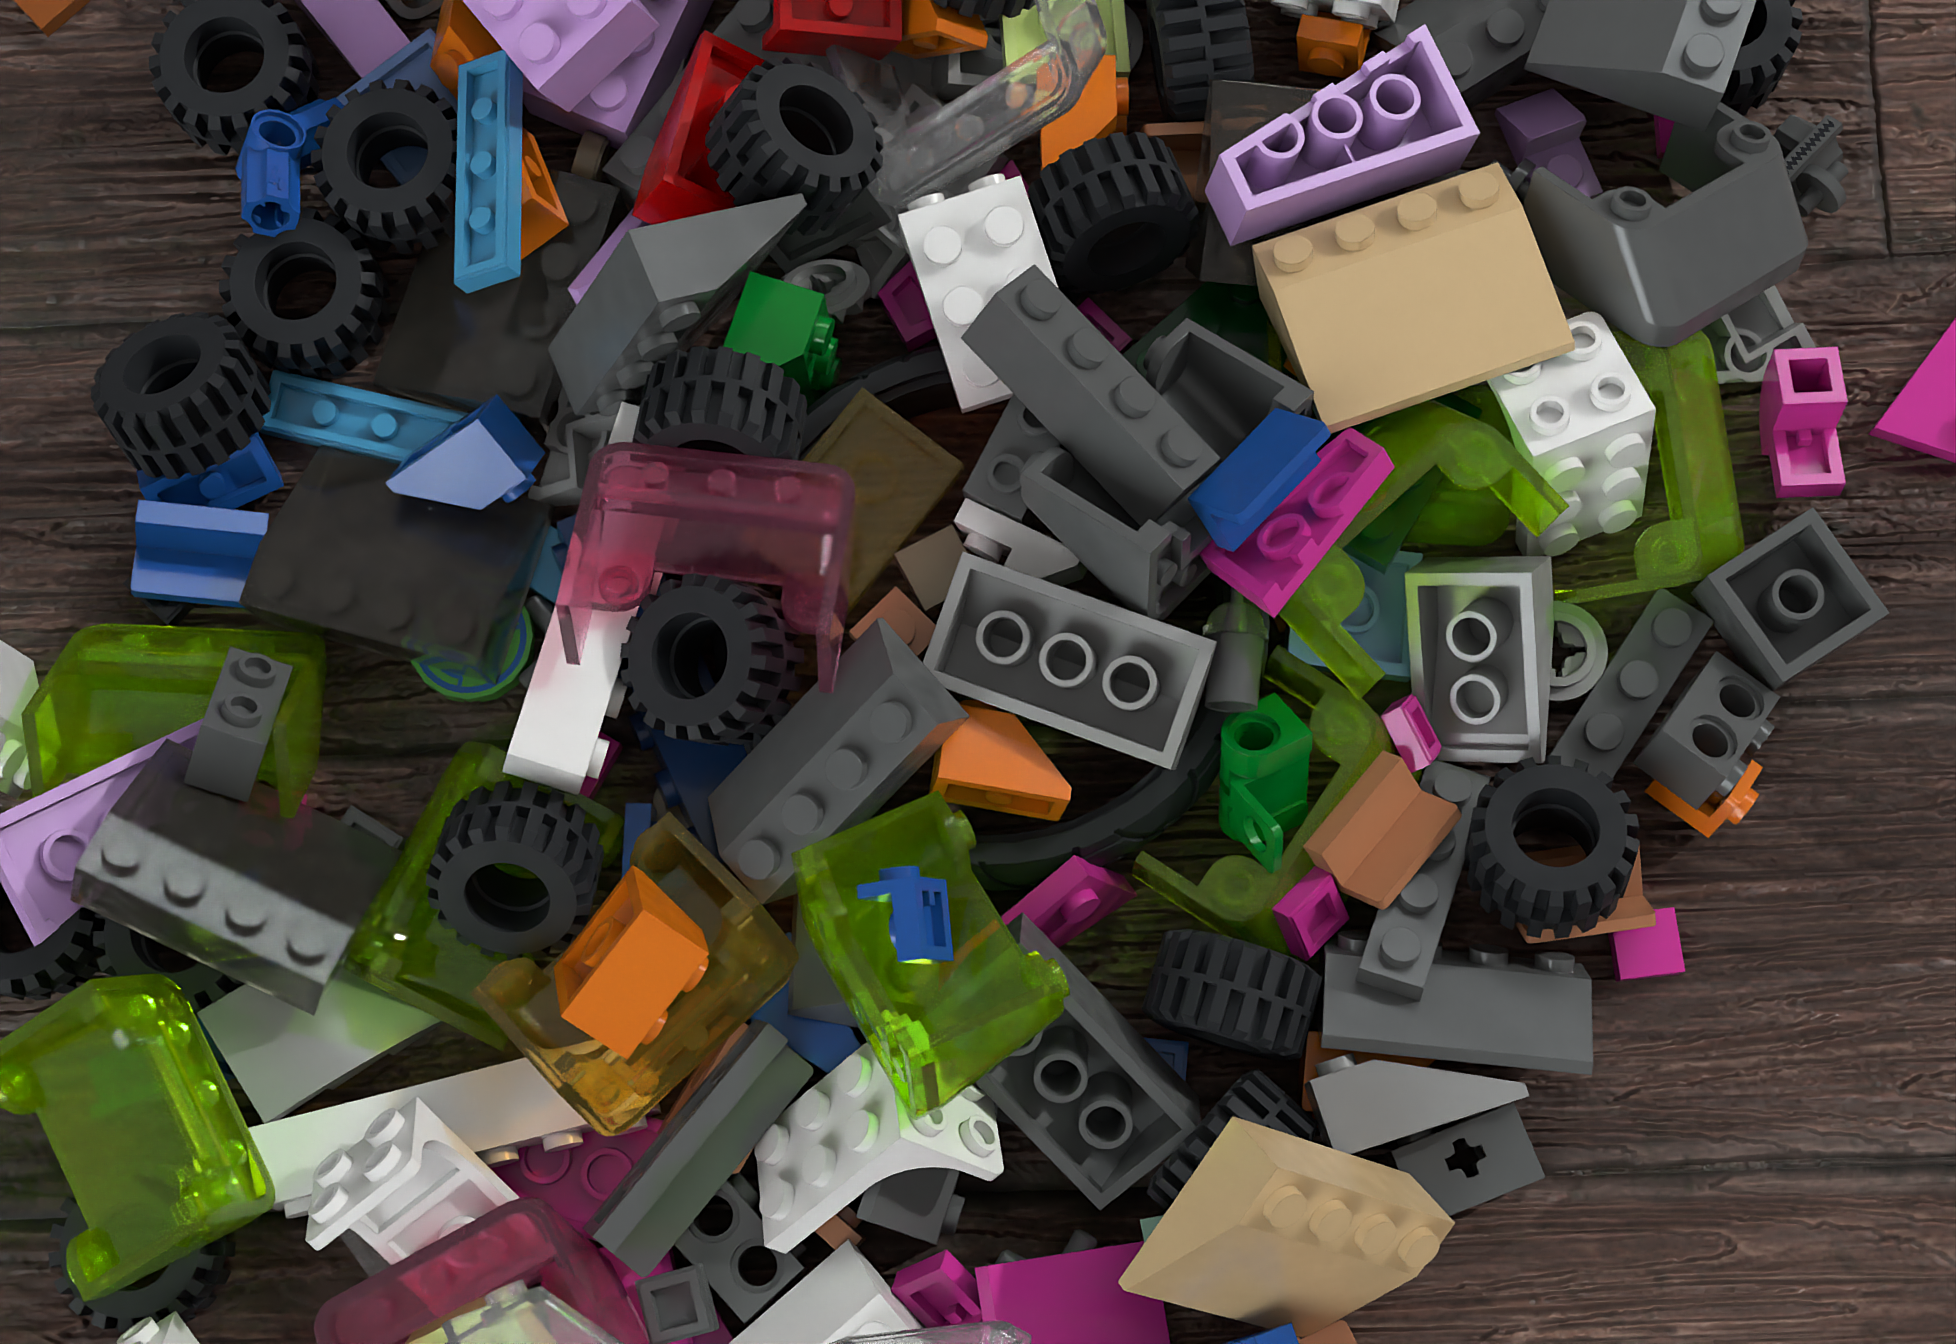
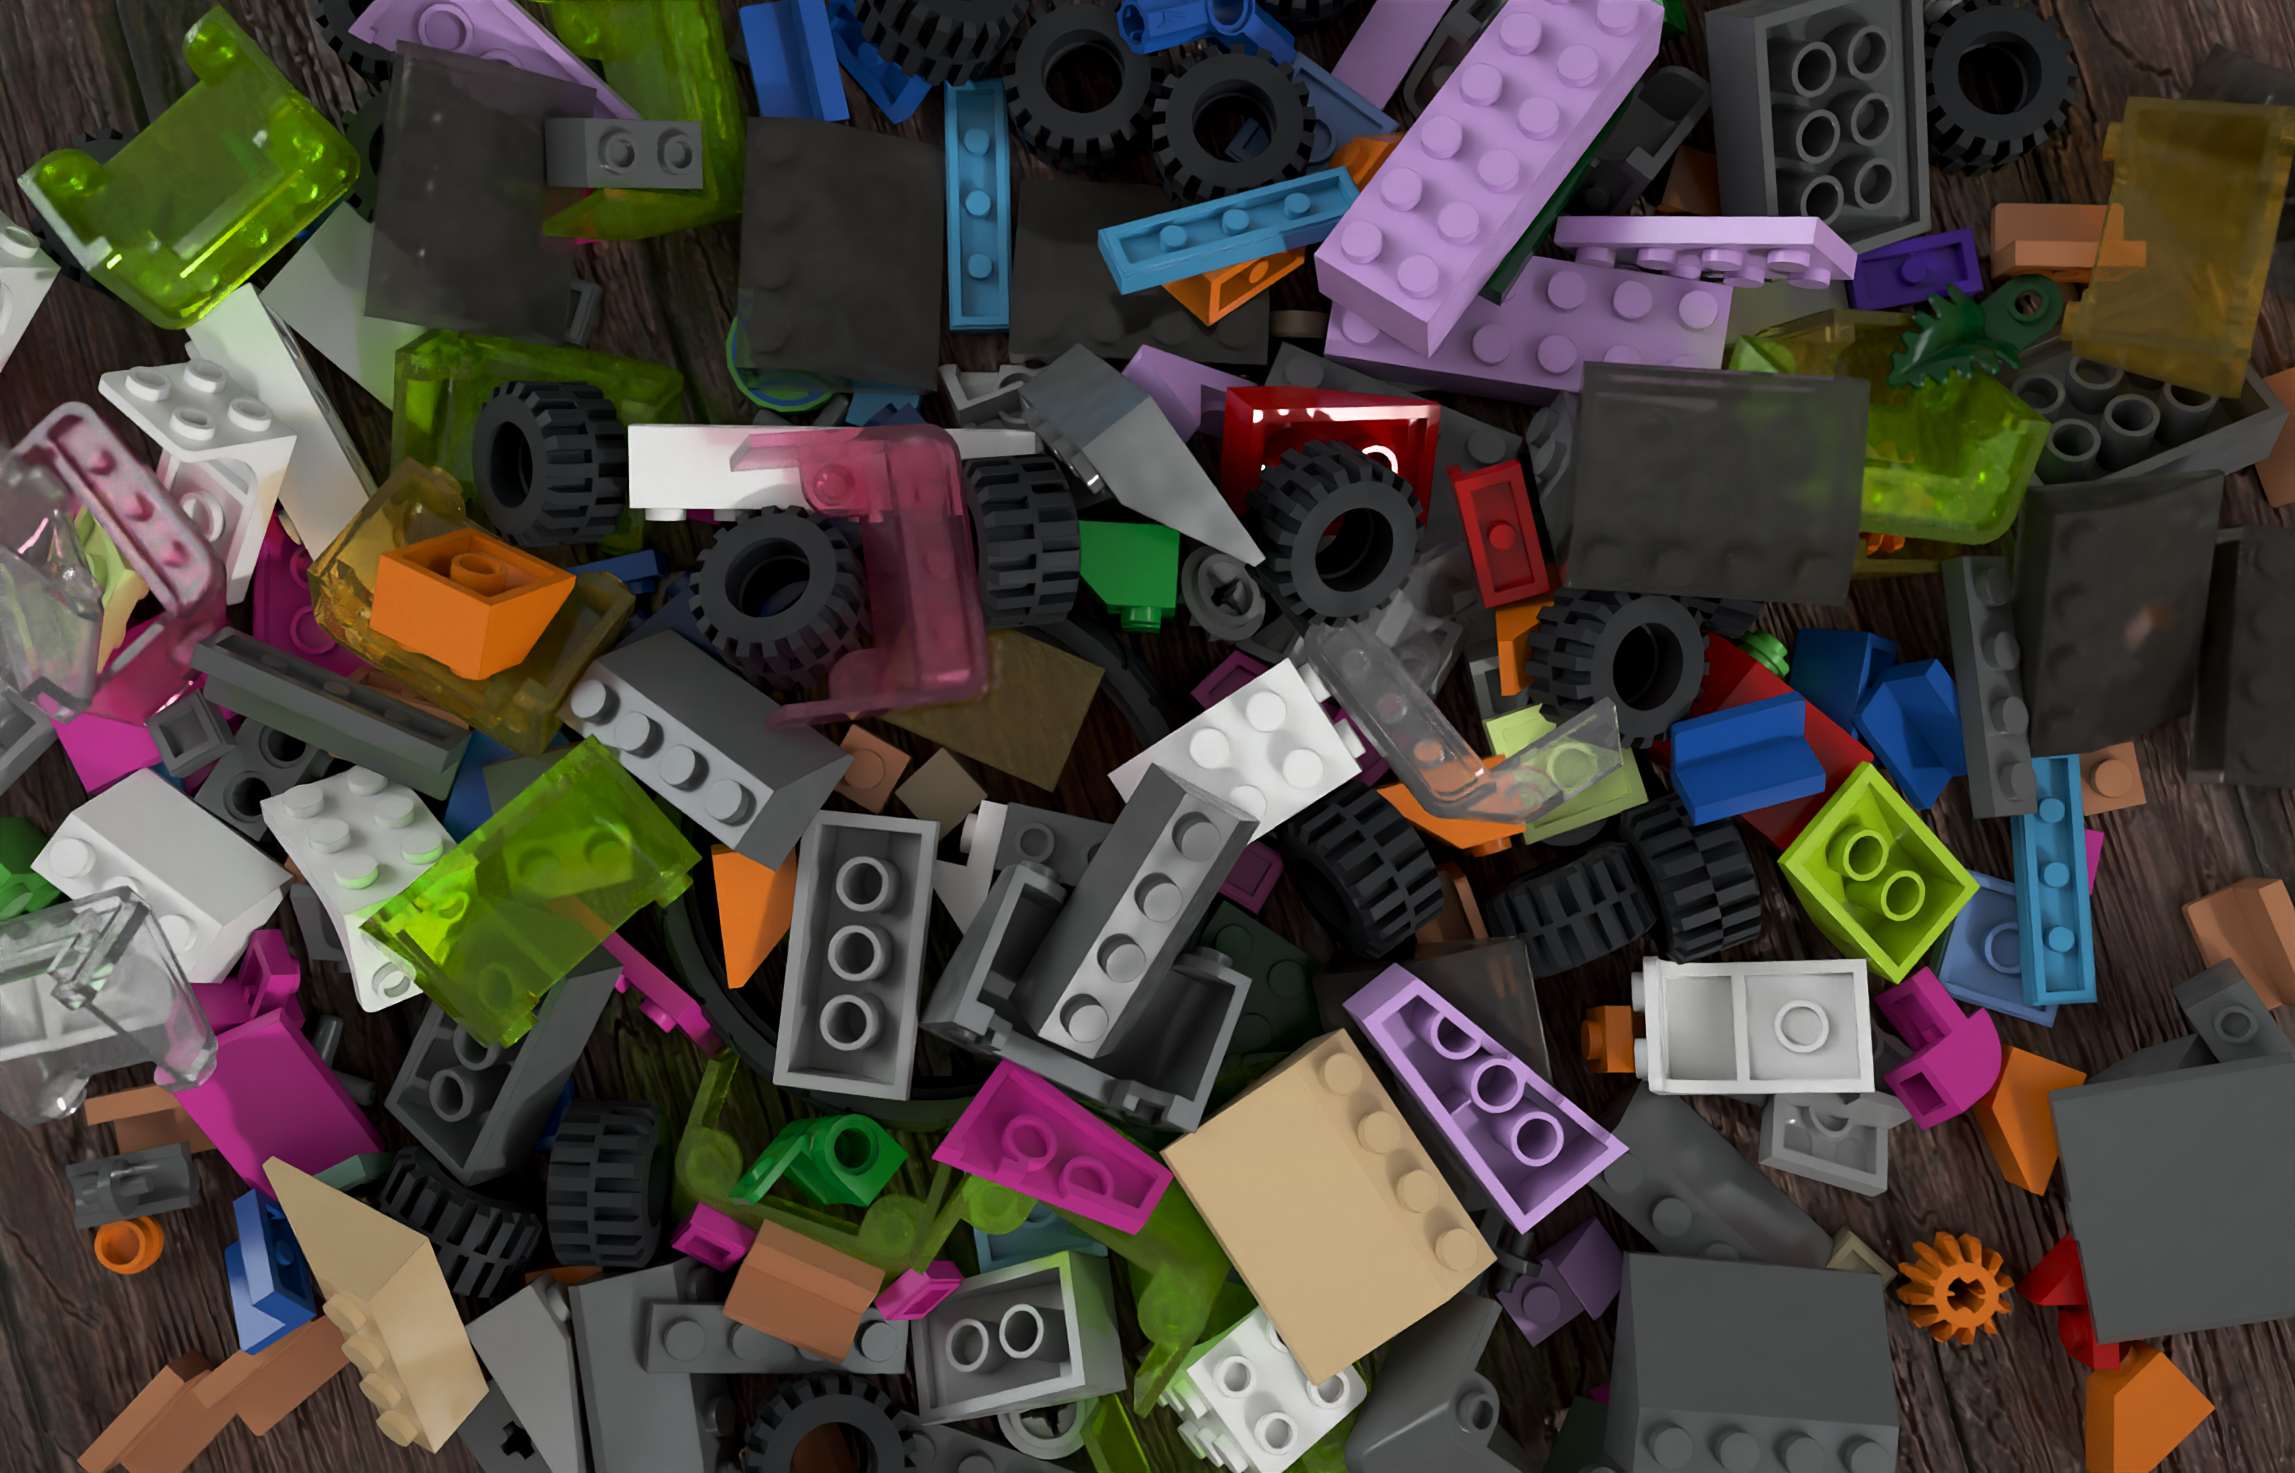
camera: 70 degrees right, 10 degrees up
(472, 460) = (950, 299): slope -> none
(919, 916) = (567, 874): blue bracket -> none
(1238, 656) = (928, 1114): dark grey piece -> none
(1258, 476) = (1085, 1103): blue panel -> none

